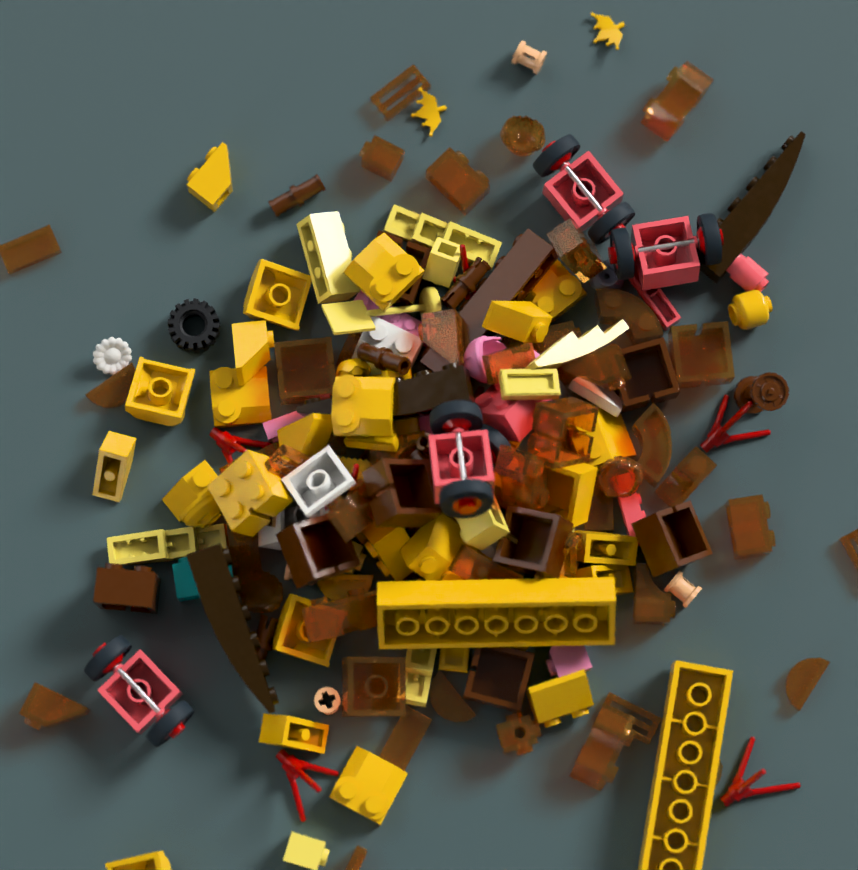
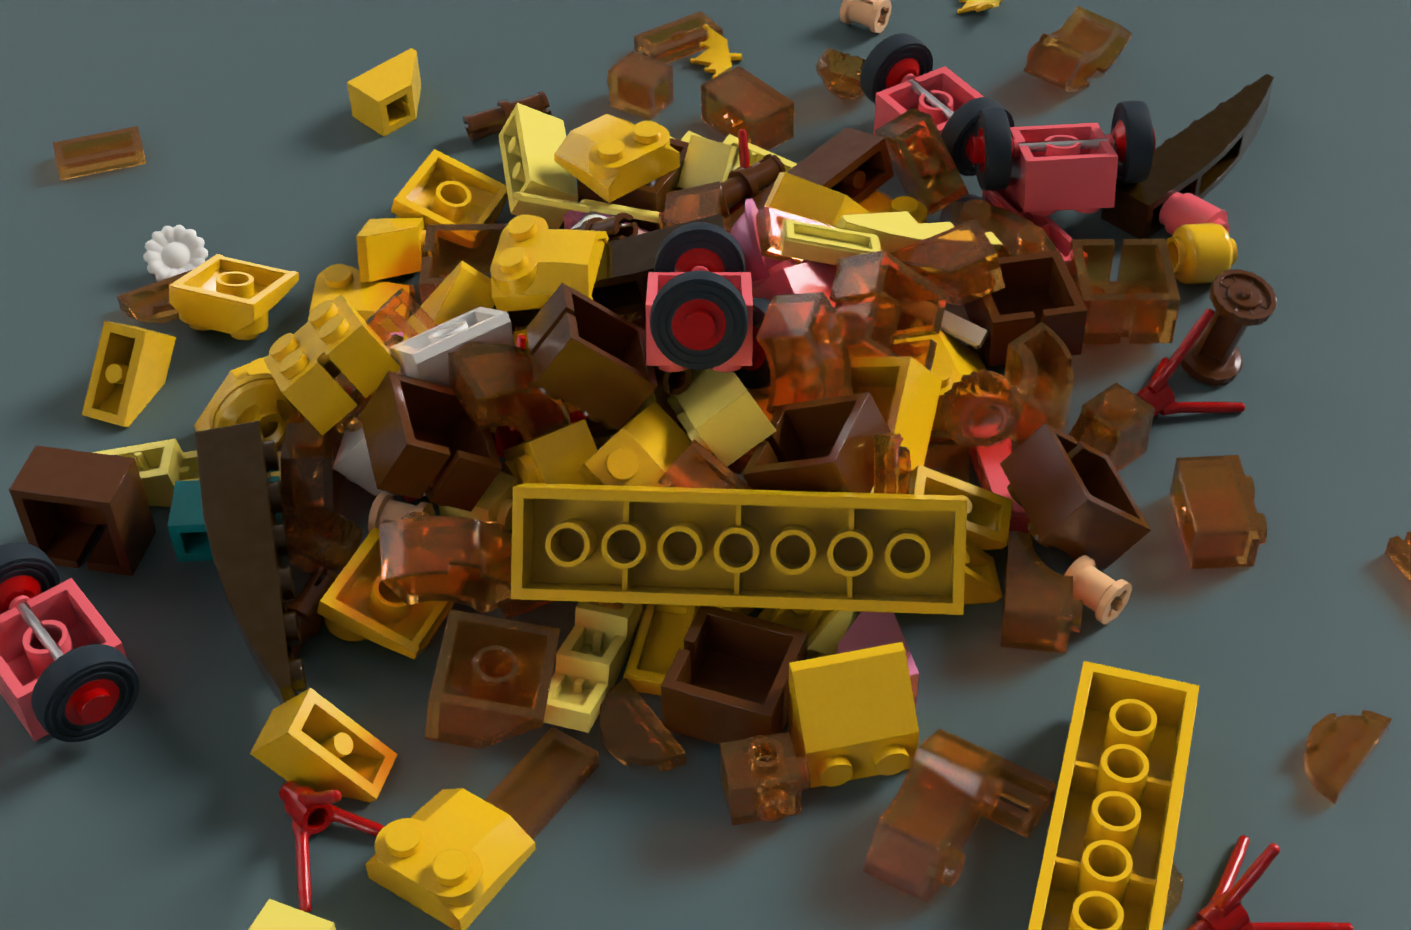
camera: 10 degrees right, 35 degrees down
(188, 309) = (313, 232): black tyre -> none
(319, 698) = (412, 693): light nougat bush -> none

